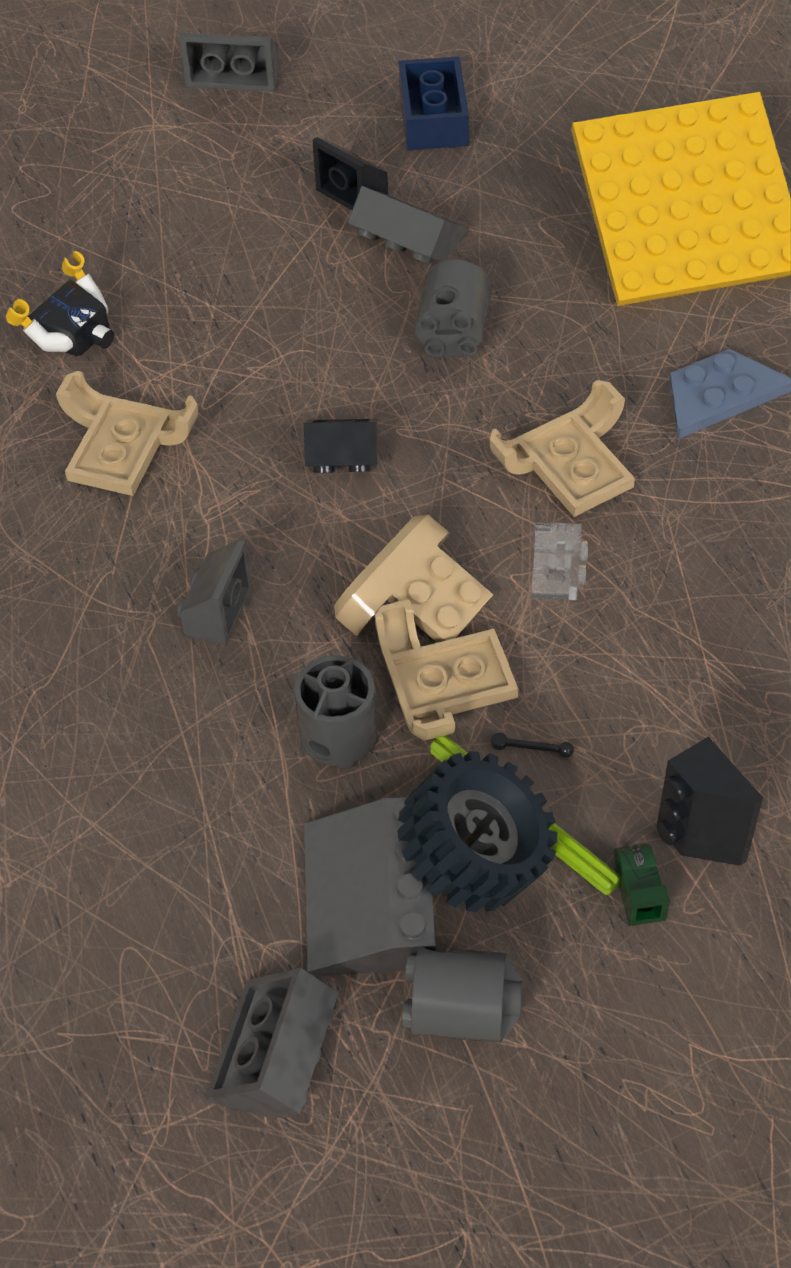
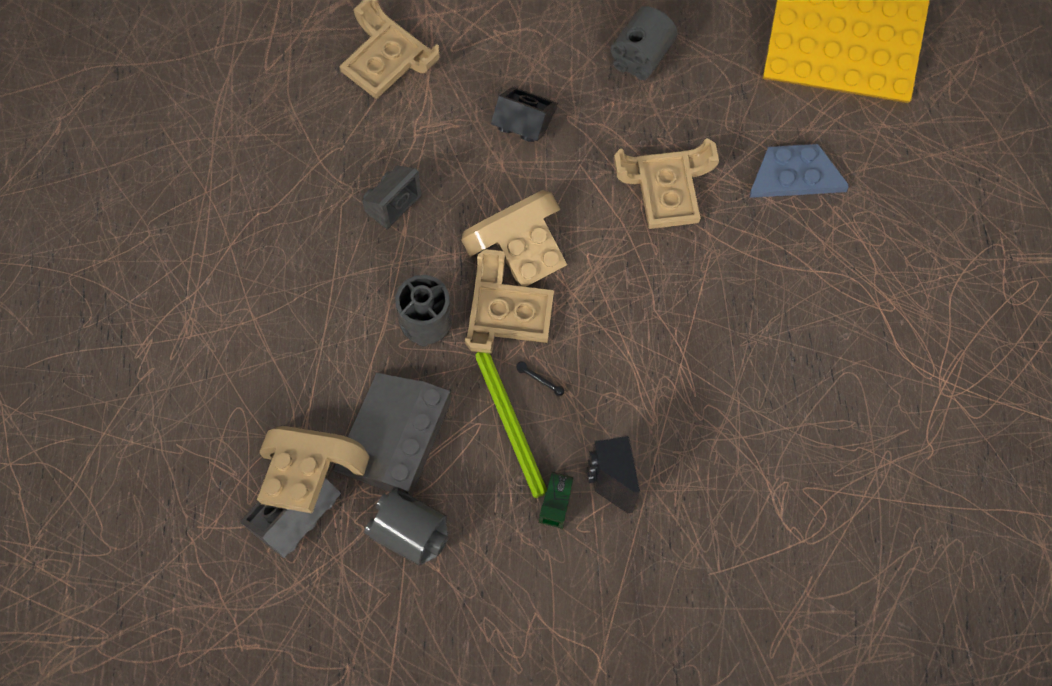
camera: 20 degrees right, 15 degrees up
(269, 969) = (301, 464): none -> tan piece
(502, 856) = (483, 445): black wheel -> none
(557, 561) = (615, 261): clear brick -> none

